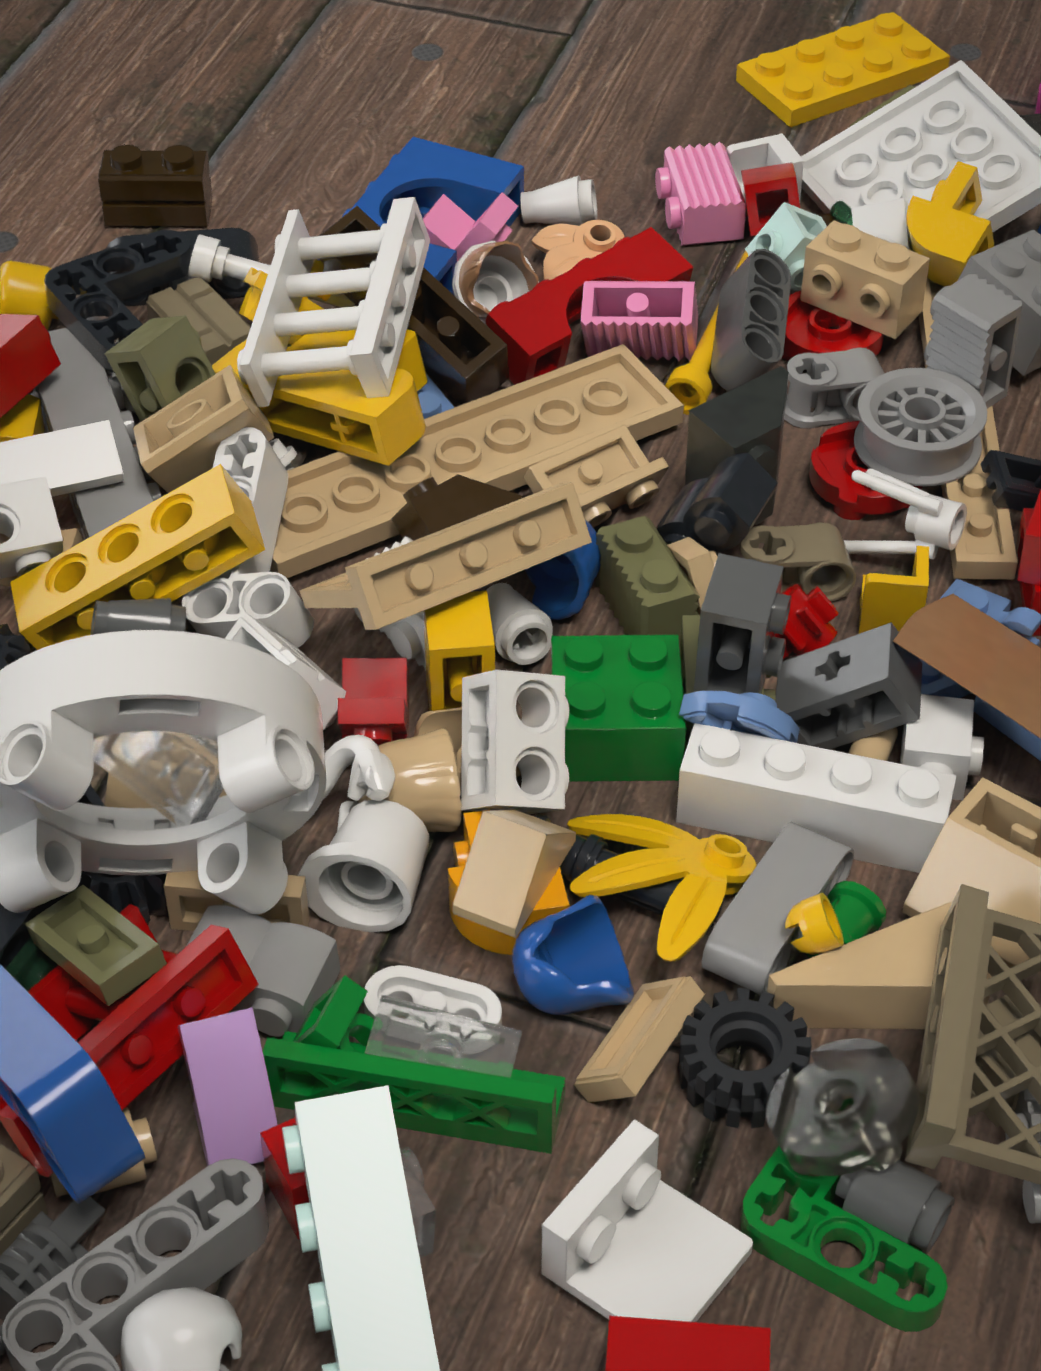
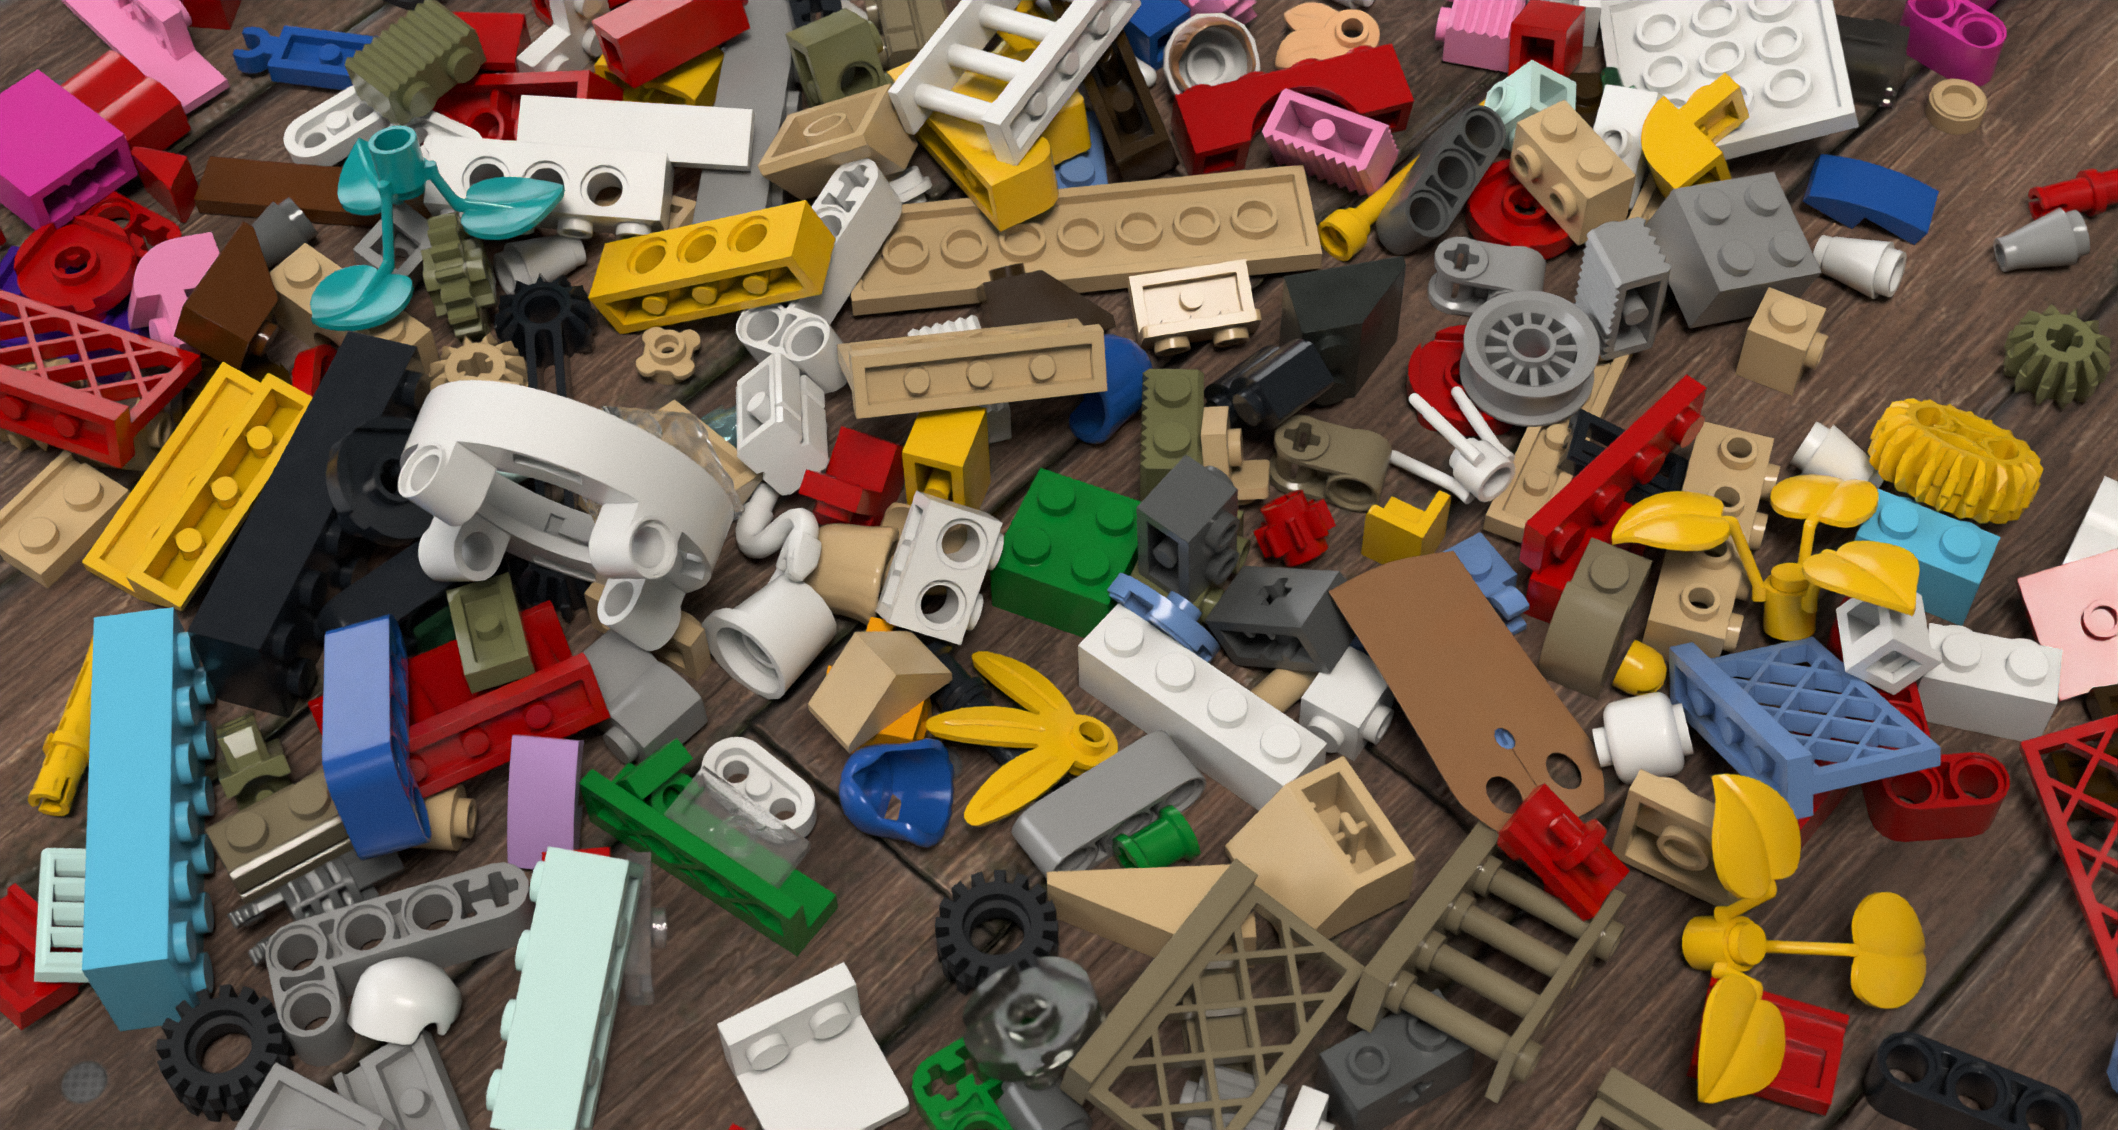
camera: 25 degrees right, 10 degrees up
(137, 615) = (692, 327): dark grey cone -> none
(518, 626) = (1036, 438): white cone -> none
(638, 1039) = (915, 884): tan tile -> none
(817, 923) = (1111, 841): yellow hinge -> none

